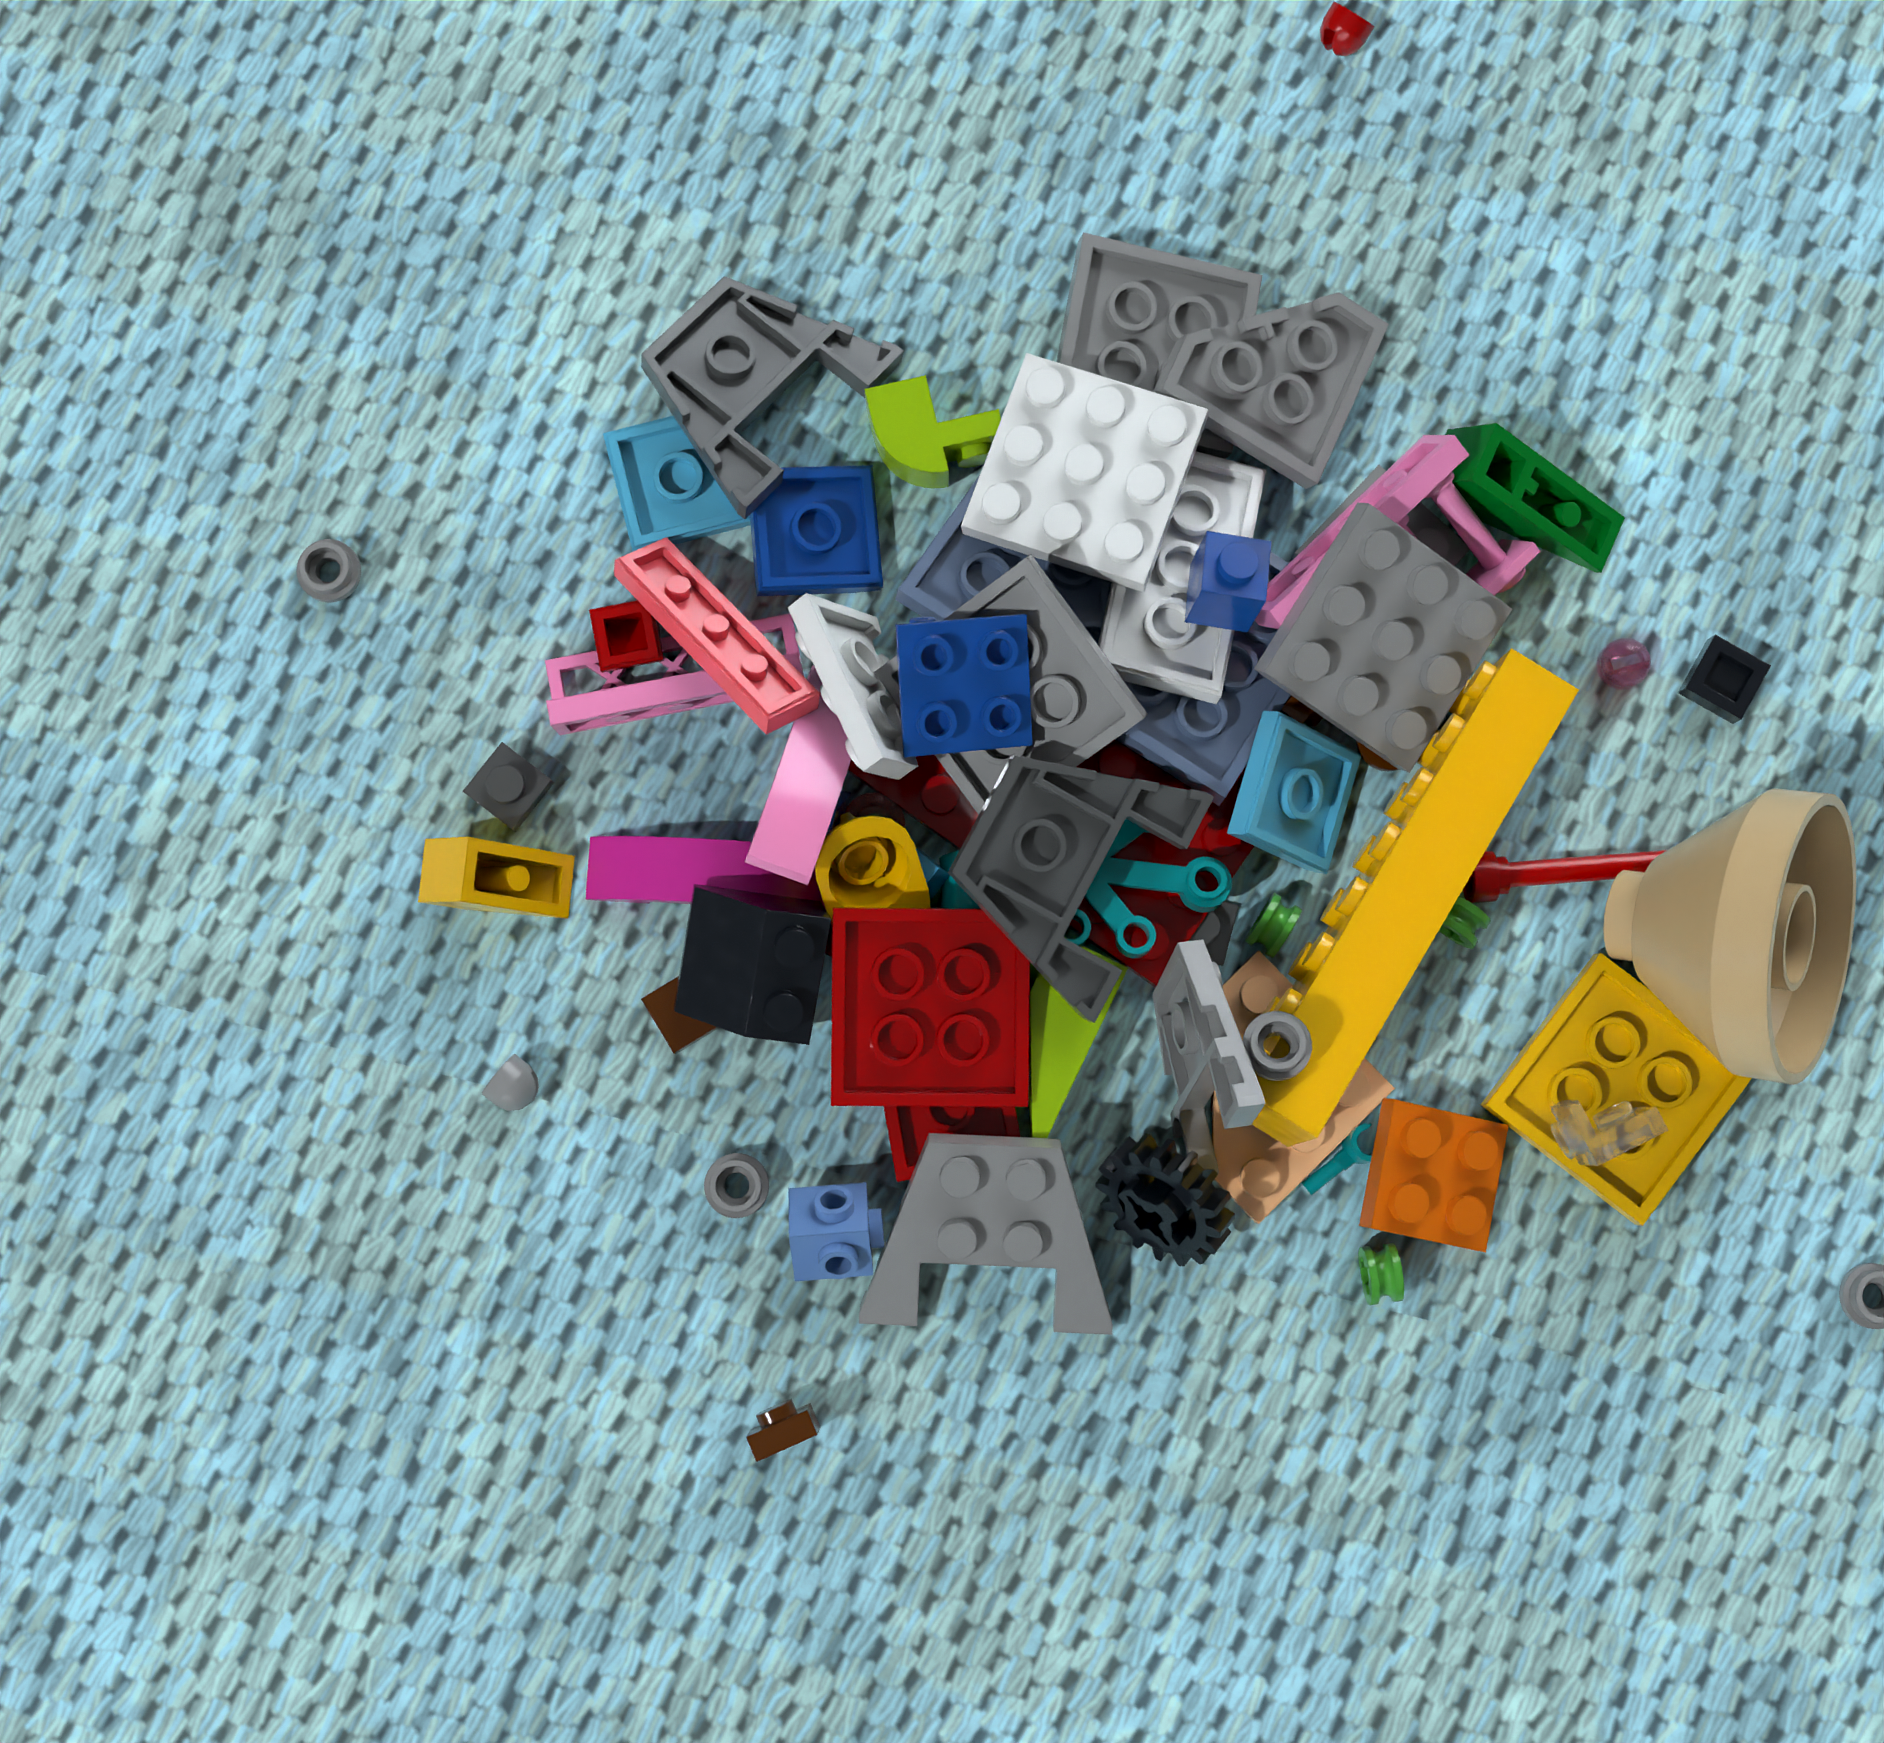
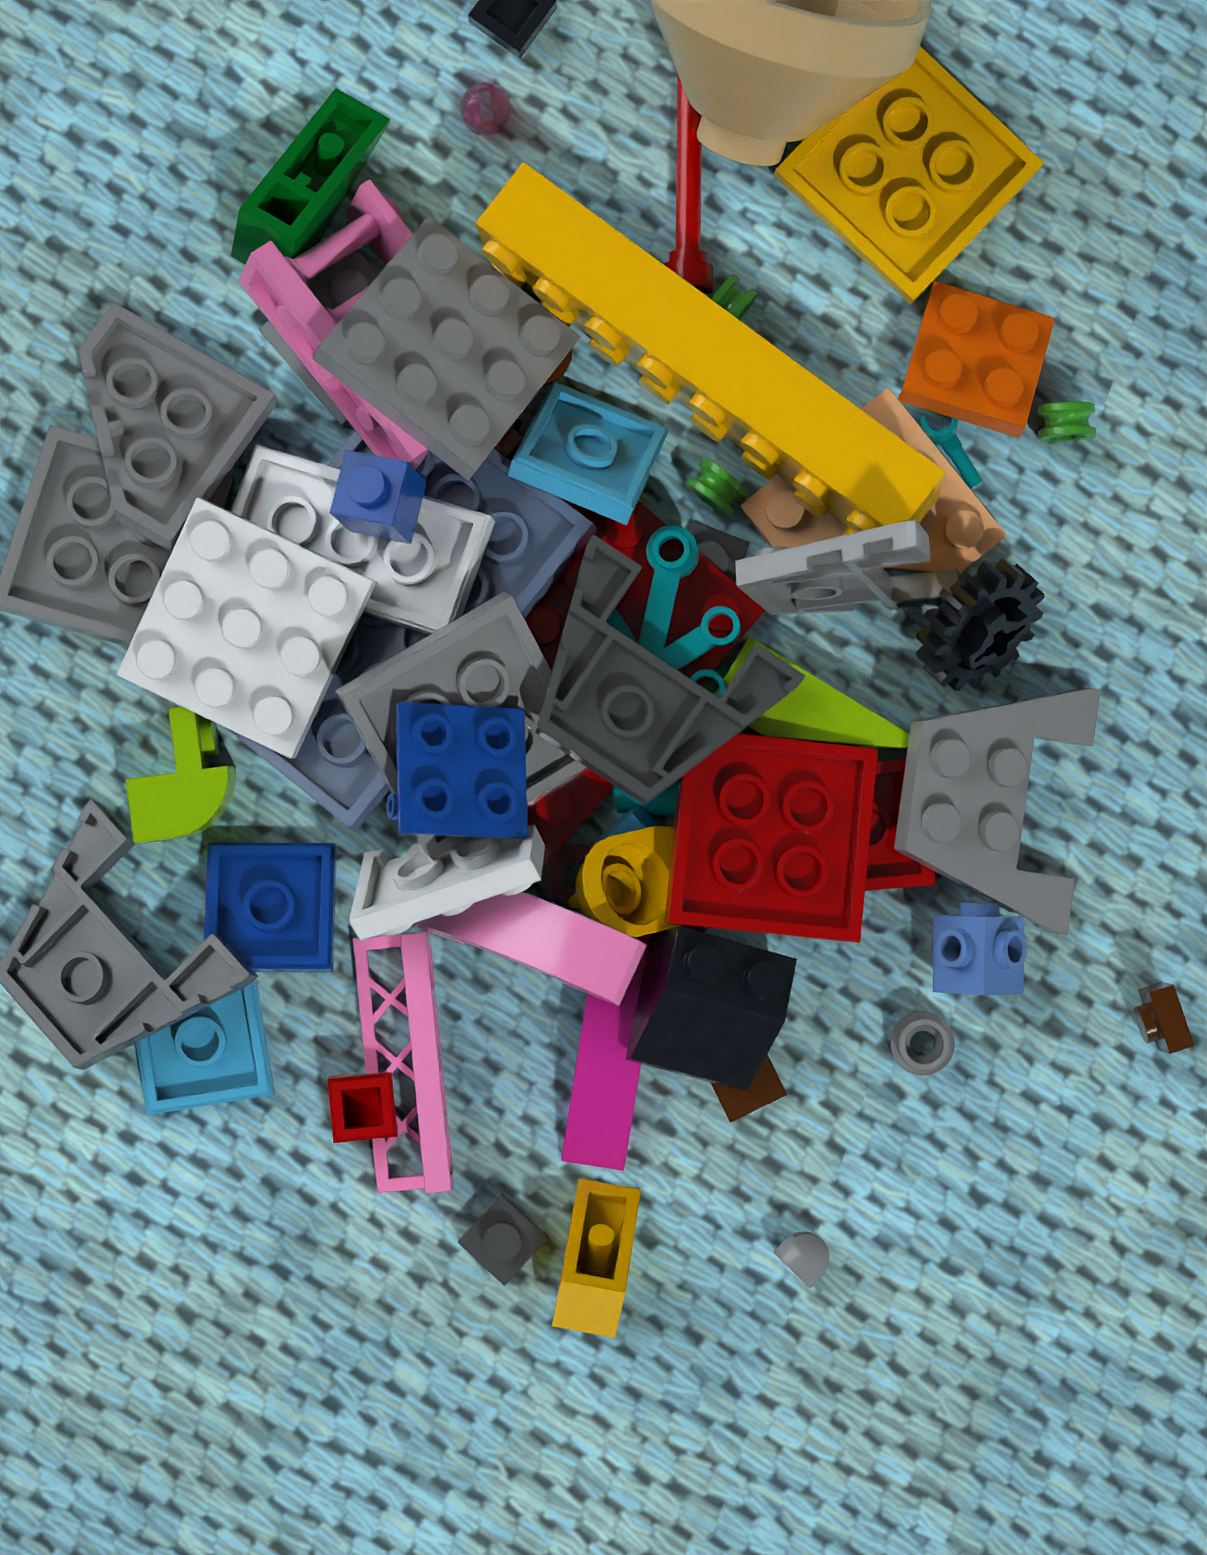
camera: 85 degrees left, 5 degrees up
(319, 554) = (257, 1426): light grey plate -> none
(717, 635) = (376, 1015): coral tile -> none
(1292, 1031) = (846, 481): light grey plate -> none
(1616, 1132) = (953, 176): clear bracket -> none

